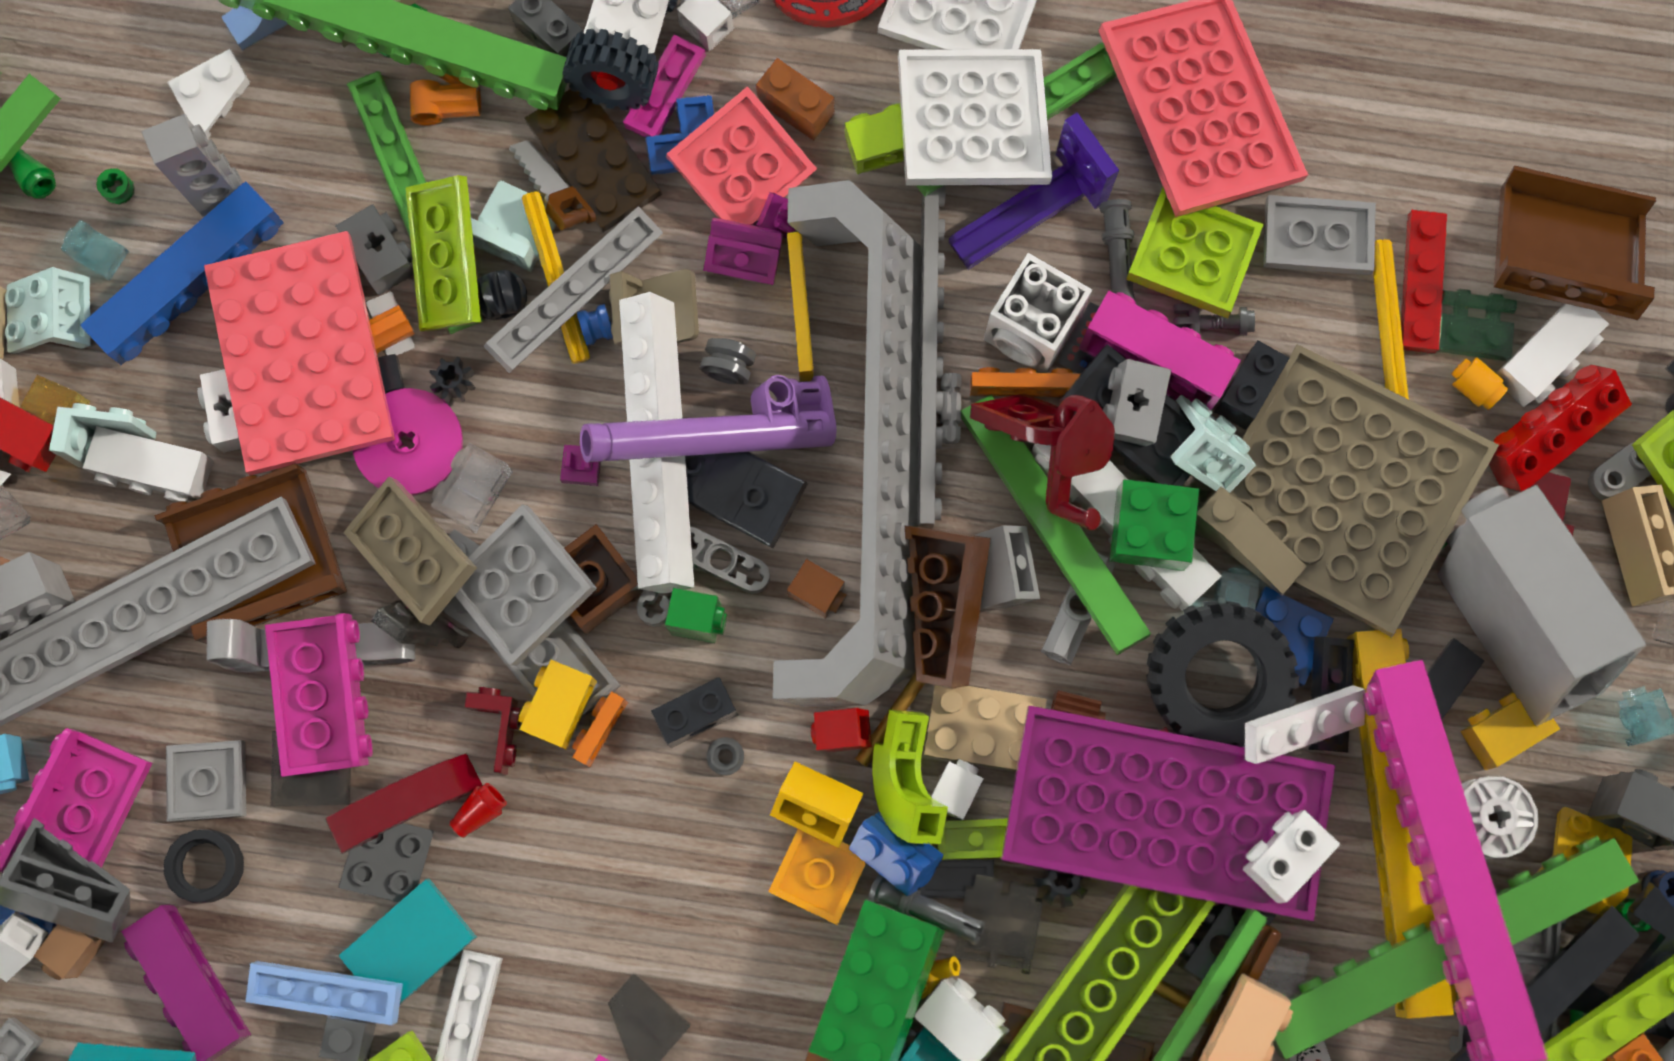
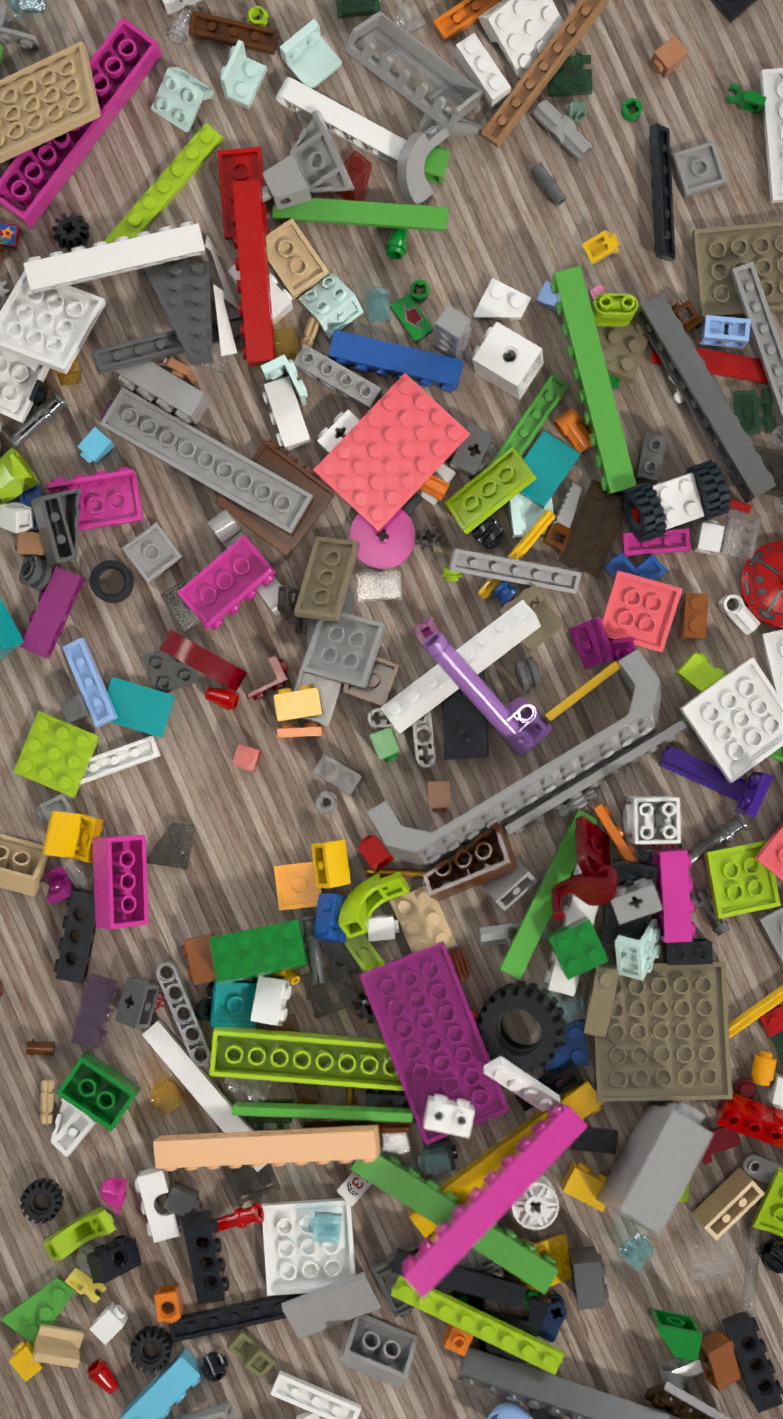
camera: 60 degrees right, 10 degrees up
(64, 365) = (310, 332): none -> tan axle
(110, 970) = (35, 572): none -> dark grey wheel
(144, 219) = (411, 318): none -> green tile
(149, 364) = (337, 378): none -> light grey brick
(286, 123) = (507, 360): none -> white brick
(469, 151) = (550, 463): none -> teal tile
(522, 380) = (450, 576): none -> lime plate
(585, 829) = (246, 757): none -> brick
(833, 41) = (740, 615): none -> white piece
(1344, 894) = (452, 1151): none -> black bracket
(1345, 928) = (434, 1160): none -> clear light blue brick
(1492, 423) = (745, 1088): none -> dark red plate

